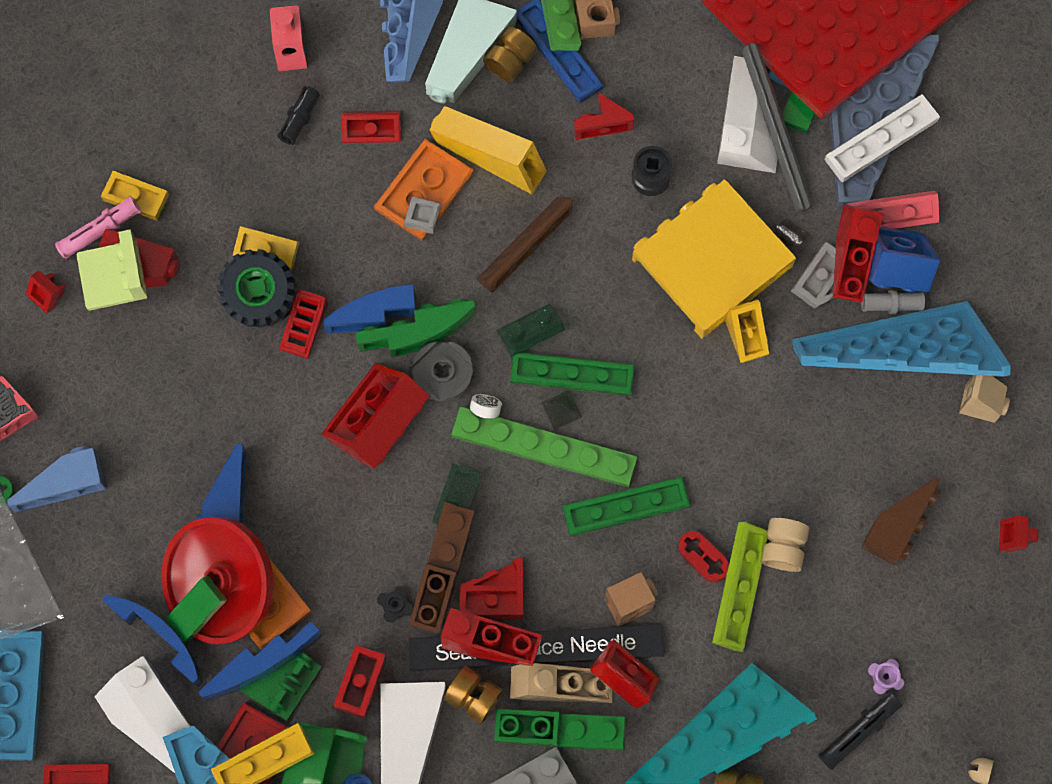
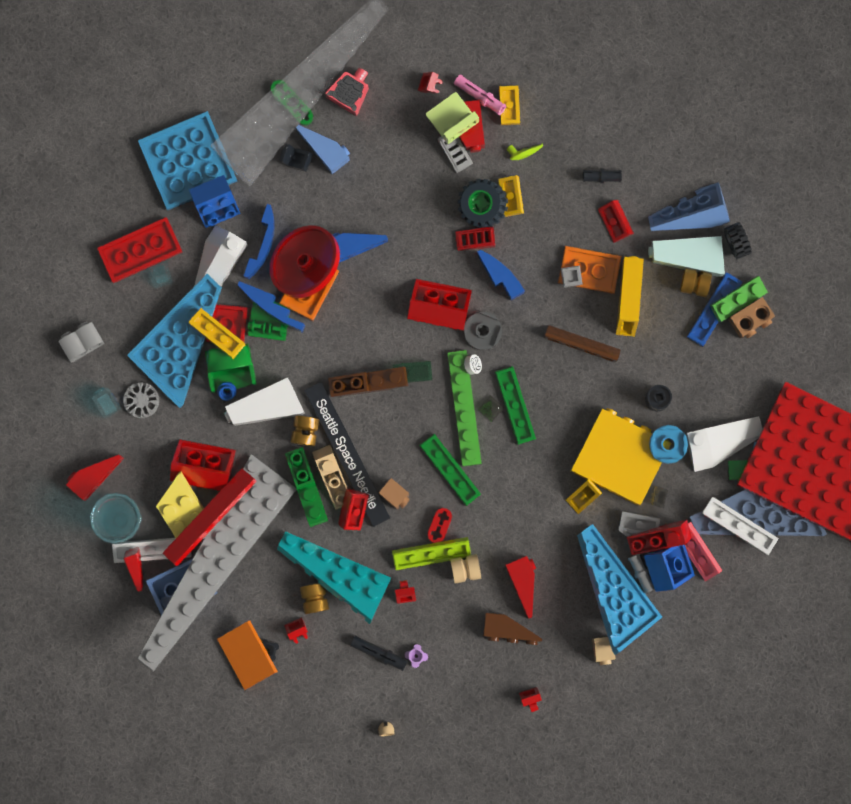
camera: 70 degrees right, 10 degrees up
(55, 529) = (295, 158): none -> black bracket
(57, 678) = (214, 201): none -> blue slope
(151, 310) = (462, 166): none -> light grey slope
(196, 609) = (284, 257): green tile -> none
(213, 207) = (518, 155): none -> lime bar
(288, 32) = (646, 147): coral torso -> none
(360, 682) = (284, 366): red brick -> none
(403, 607) = (337, 360): black plate -> none
(431, 325) = (505, 311): green slope -> none
(488, 639) = (337, 426): red slope -> none
(496, 593) = (366, 418): red wing -> none
(530, 330) = (530, 370): clear green plate -> none
(610, 121) = (681, 360): red slope -> none
(725, 198) = (658, 450): none -> dark azure tile
(777, 127) = (720, 460): dark grey axle -> none
(785, 650) = (405, 594): none -> red tile
(837, 470) = (523, 577): none -> red slope

